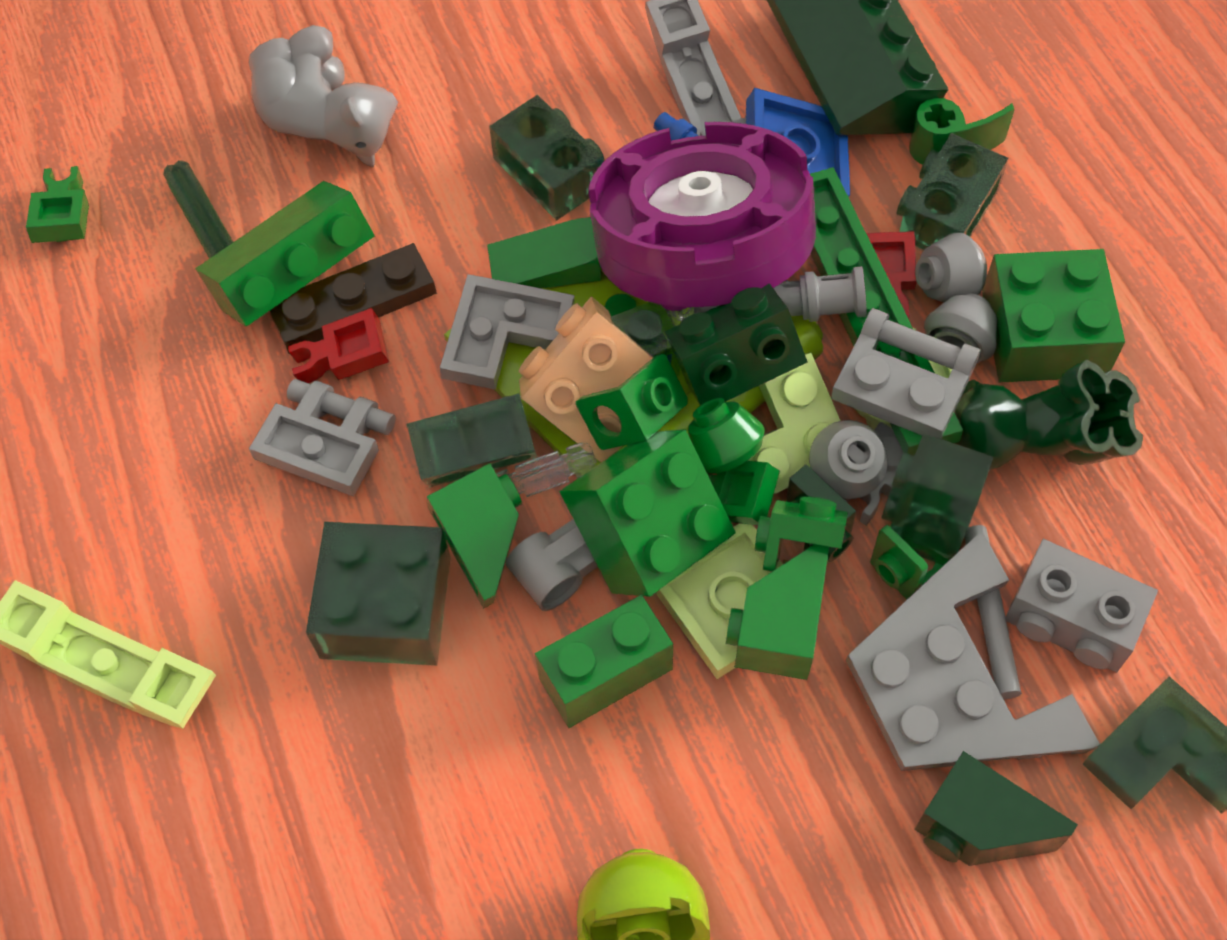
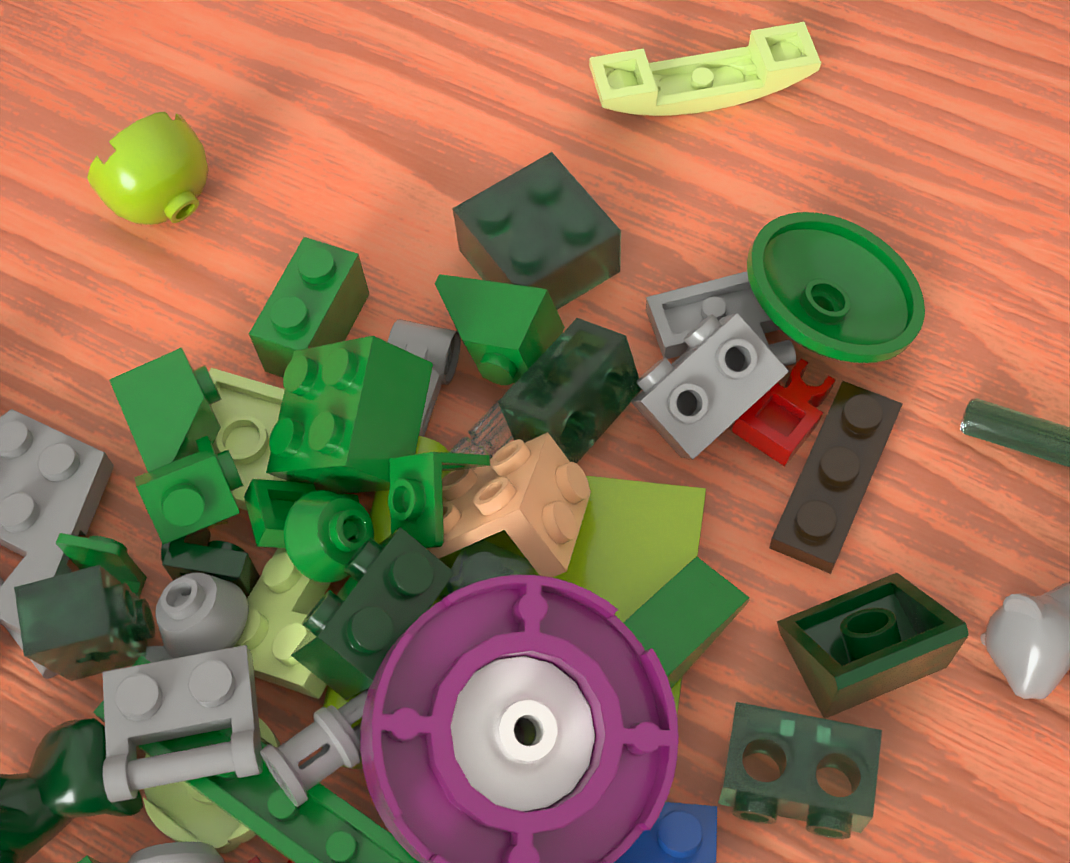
camera: 145 degrees right, 0 degrees up
(224, 384) = (835, 287): none -> green dish
(285, 252) = (931, 448): green brick -> none
(380, 376) = (707, 384): none -> light grey brick
(441, 183) = (871, 642): none -> dark green slope
(490, 318) = (663, 521): light grey plate -> none

